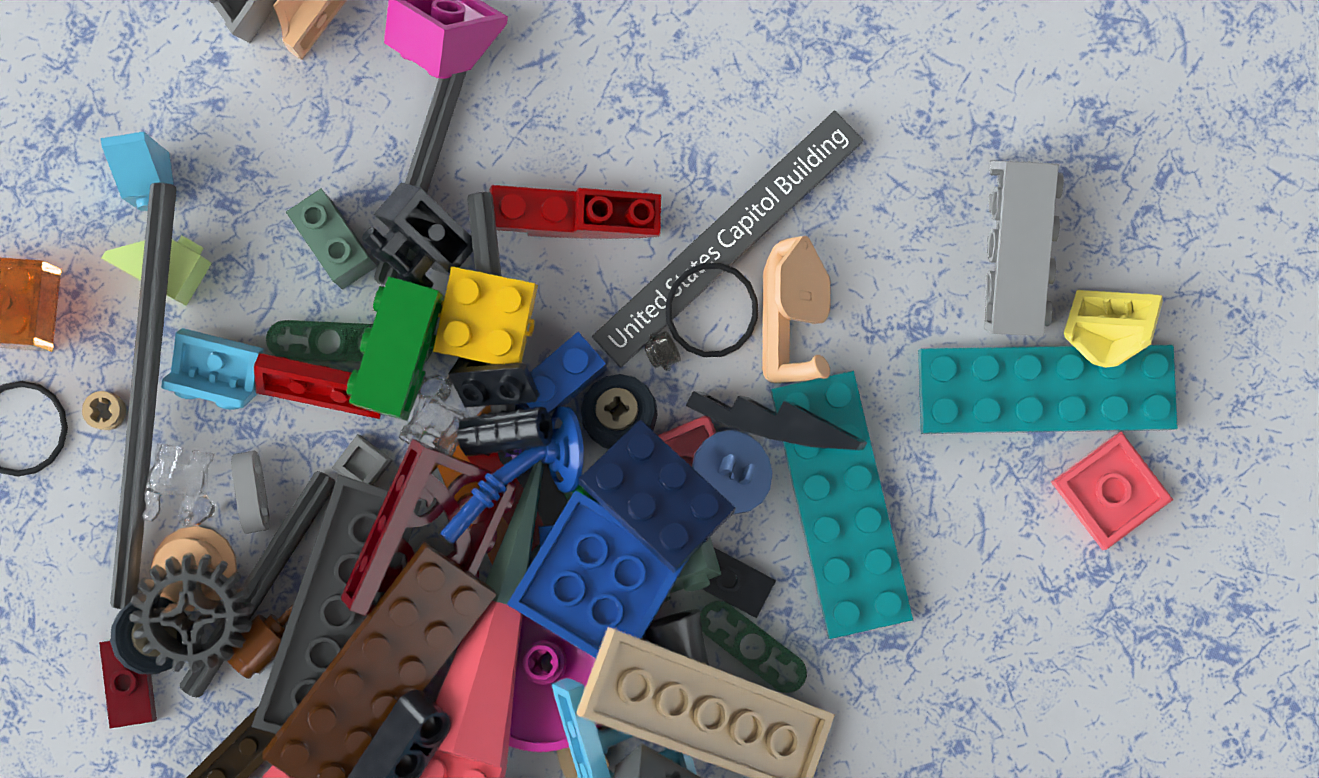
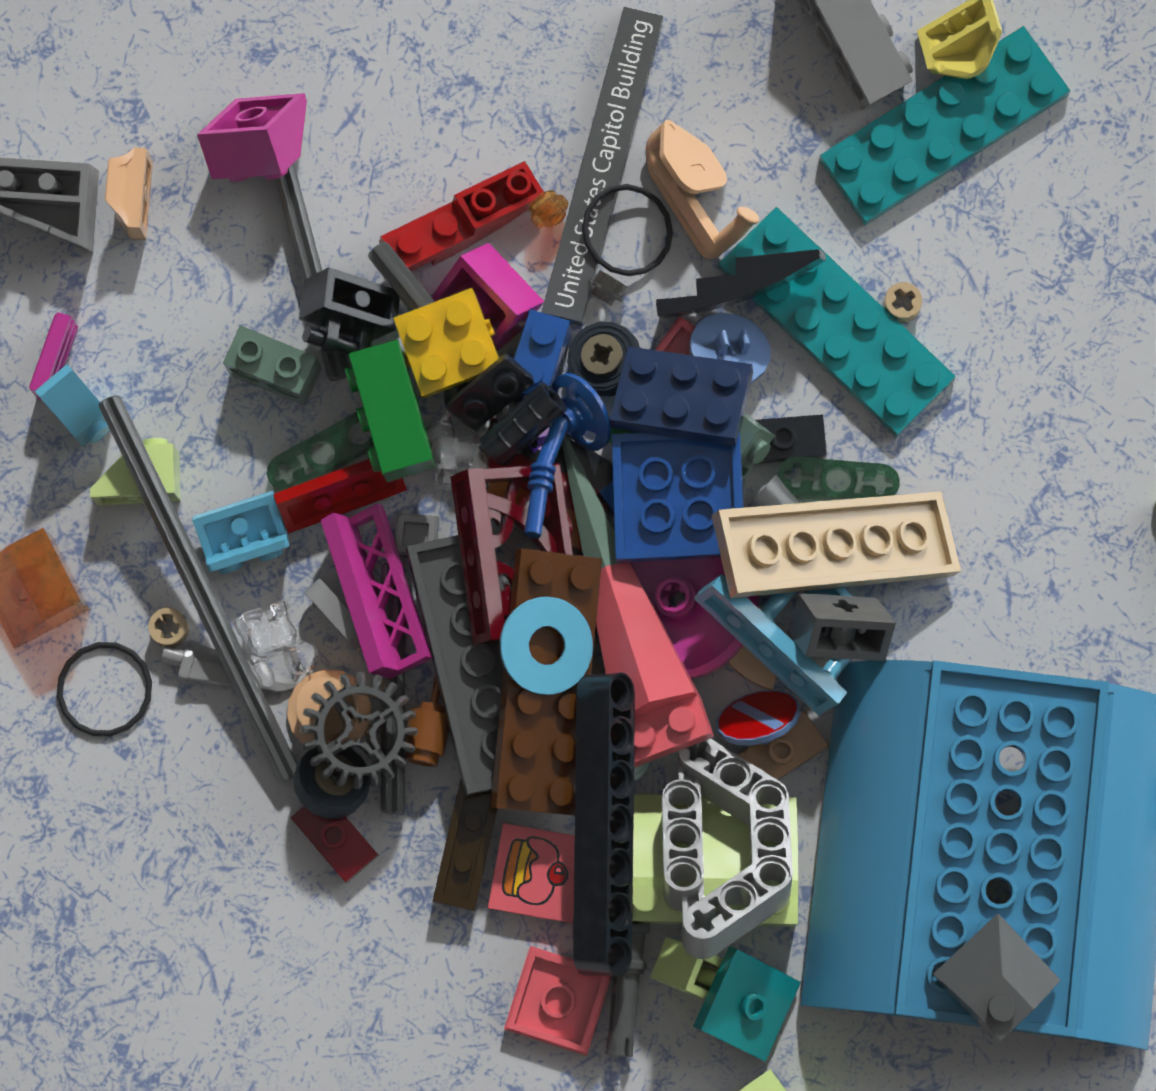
camera: 25 degrees left, 5 degrees down
(108, 461) = (204, 665): none -> light grey bar
(157, 110) = (55, 350): none -> dark pink tile
(282, 493) = (362, 592): none -> dark pink fence
(388, 614) = (515, 645): none -> medium azure gear
(563, 292) = (499, 290): none -> dark pink slope
(654, 249) = (548, 209): none -> clear orange plate
(917, 514) = (904, 289): none -> tan bush
(1111, 490) = (1050, 173): coral tile -> none

